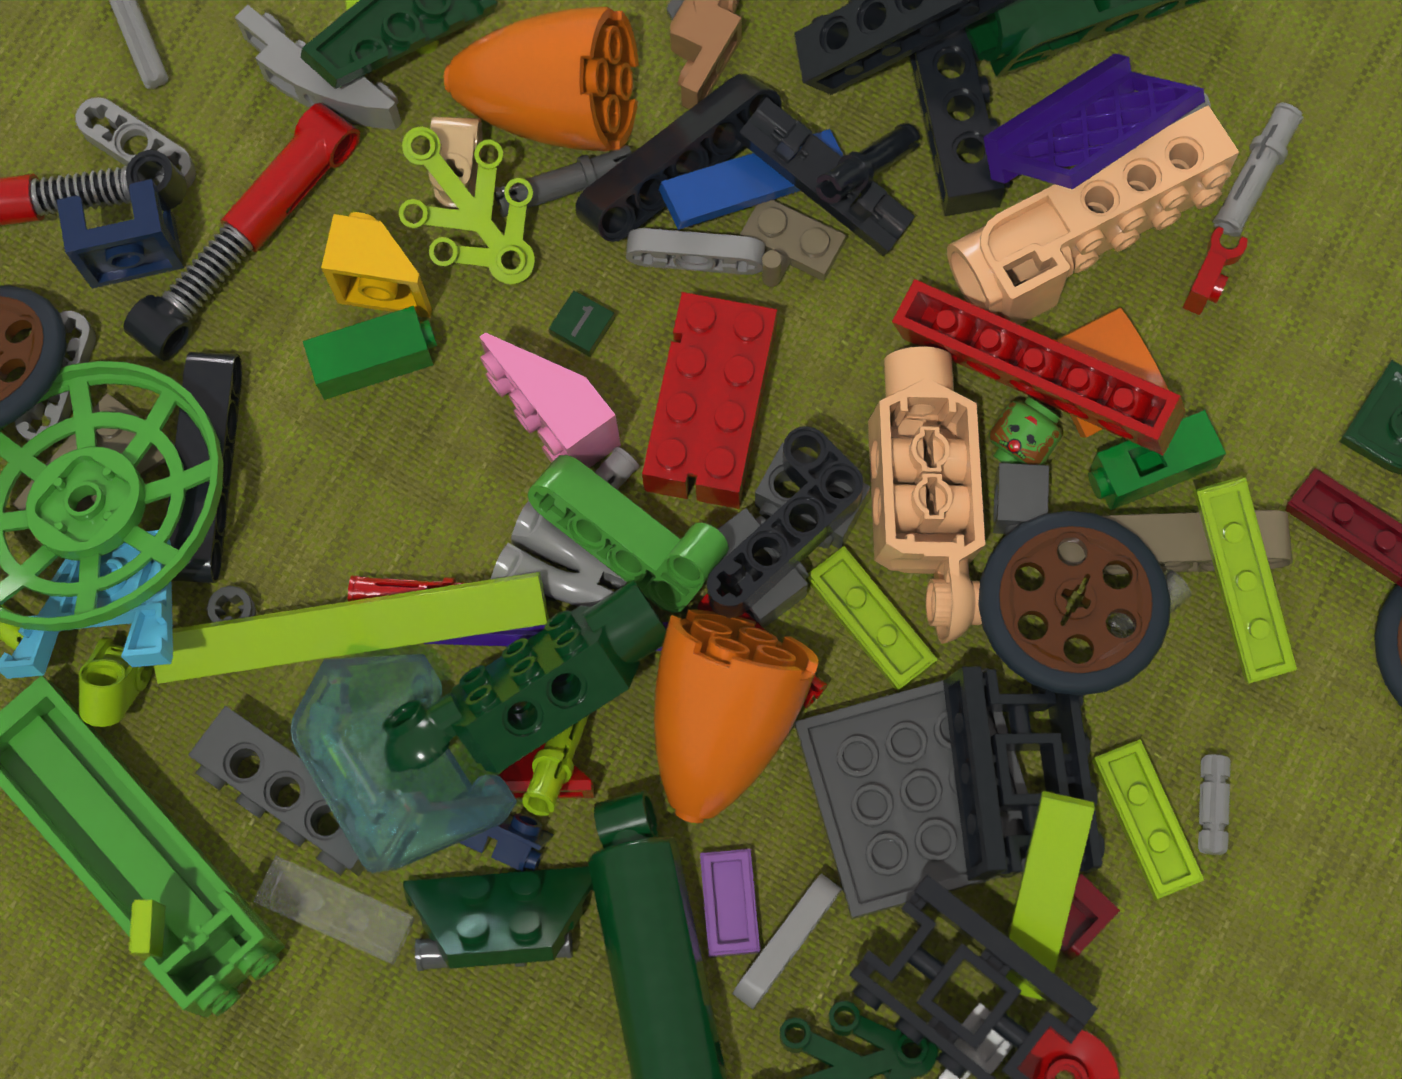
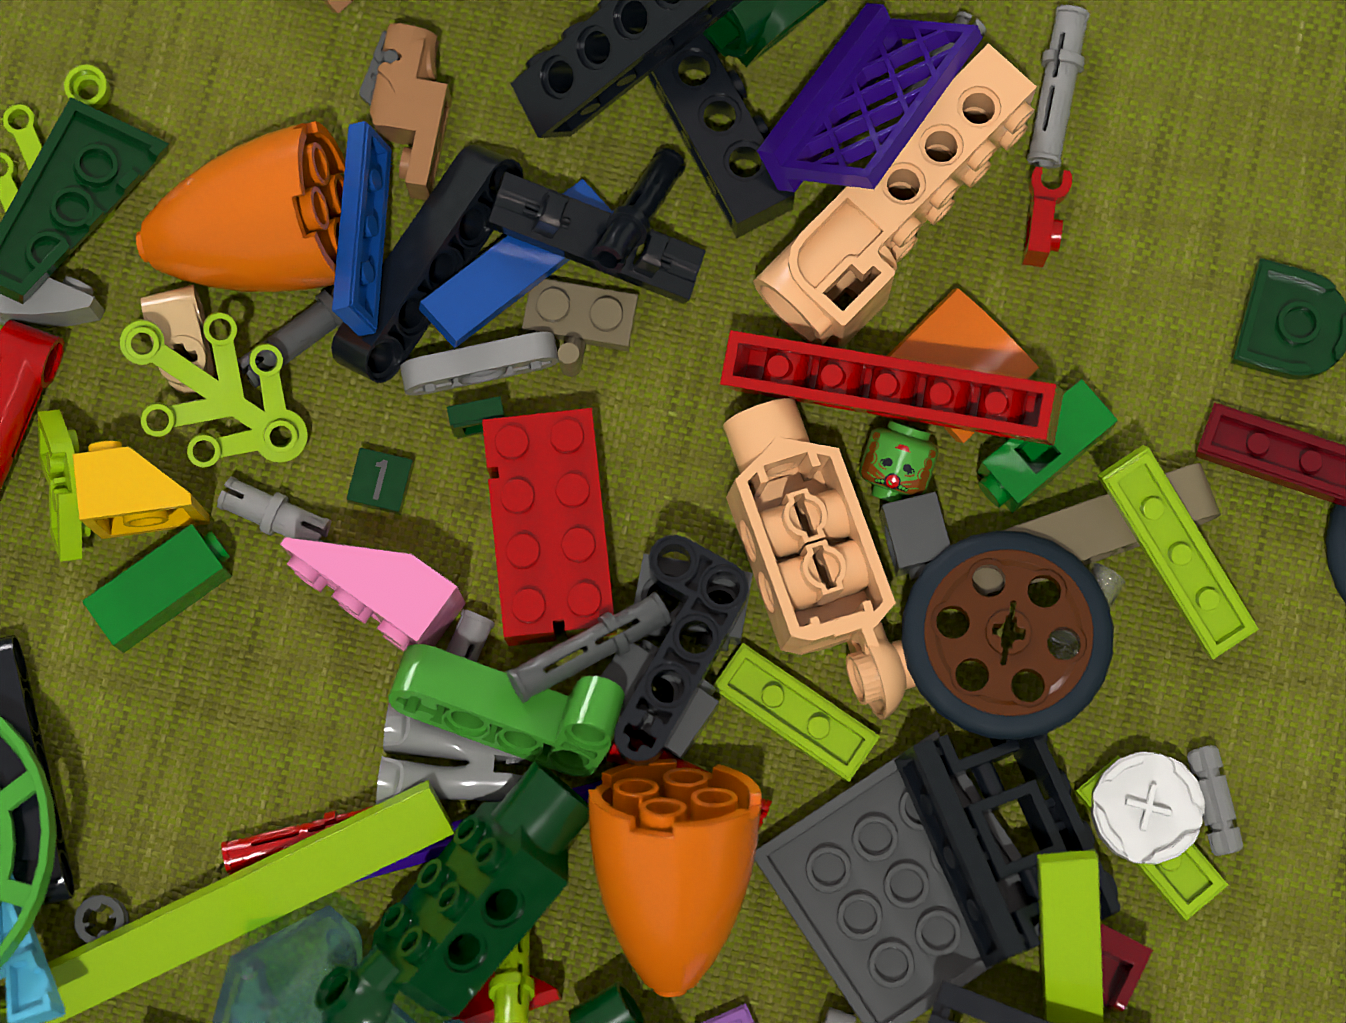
camera: 20 degrees left, 5 degrees up
(311, 277) = (56, 457): none -> lime plate
(479, 317) = (272, 512): none -> light grey pin
(632, 112) = (362, 229): none -> blue tile
(669, 289) = (467, 417): none -> dark green tile
(732, 498) = (646, 615): none -> dark grey pin
(1152, 790) = (1147, 808): none -> white tile

